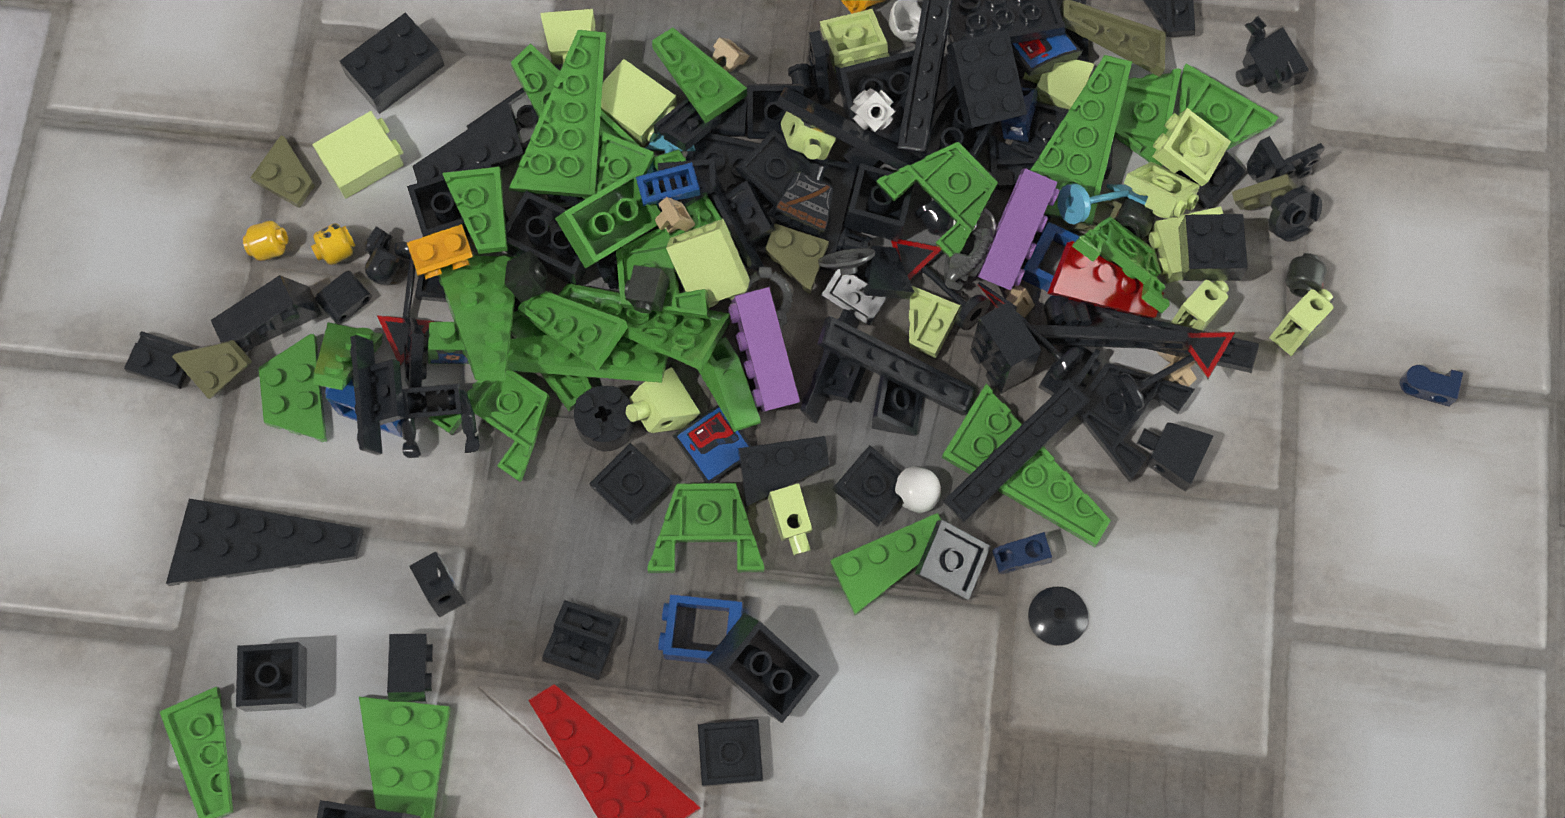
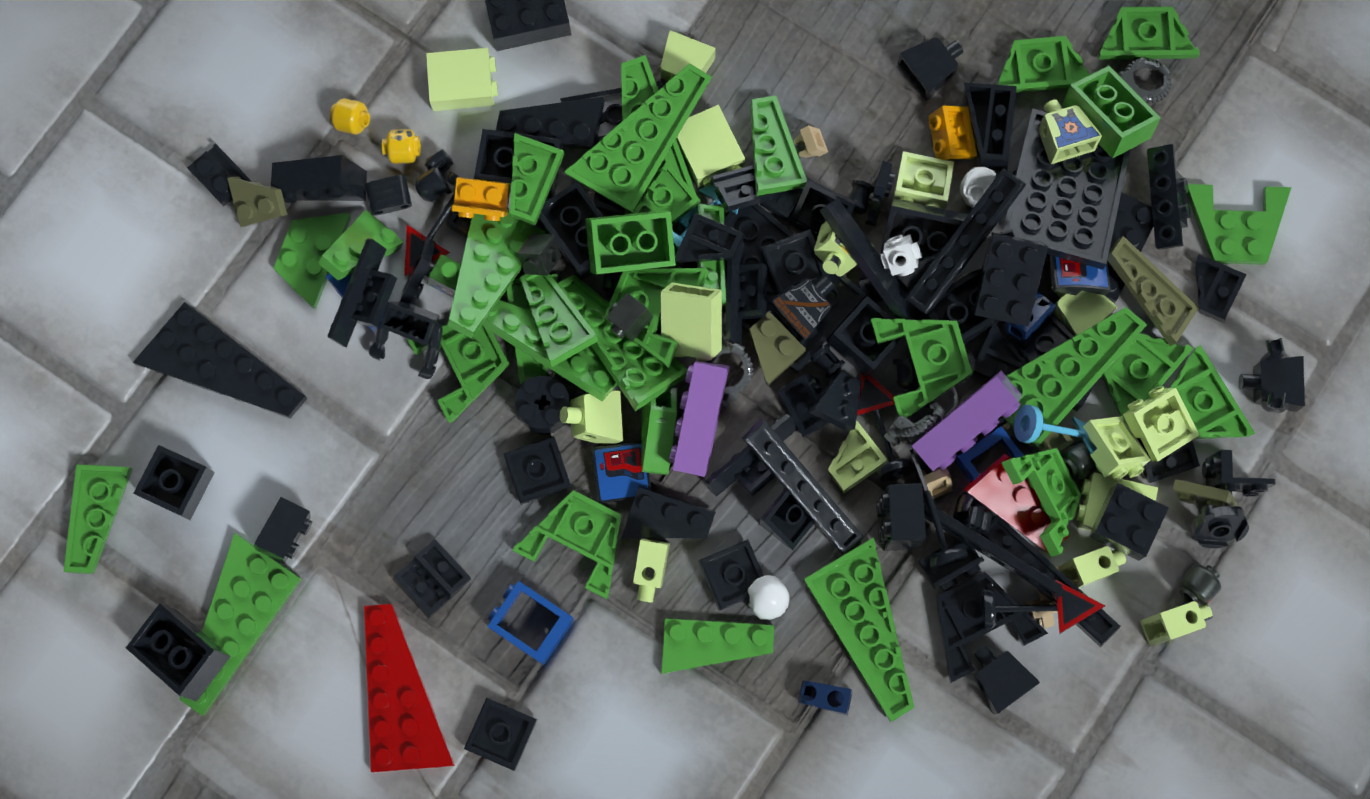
camera: 30 degrees right, 5 degrees up
(283, 174) = (394, 65): olive wing -> none
(436, 583) = (340, 472): black torso -> none
(666, 174) = (693, 228): blue slope -> none
(673, 216) = (683, 266): tan tile -> none
(763, 667) = (559, 681): black brick -> none
(847, 260) = (810, 373): dark grey dish -> none
(952, 560) = (764, 672): plate -> none
(1016, 451) = (866, 608): black tile -> none
(1054, 630) = (813, 763): black dish -> none
(1431, 386) = (1255, 736): dark blue leg -> none

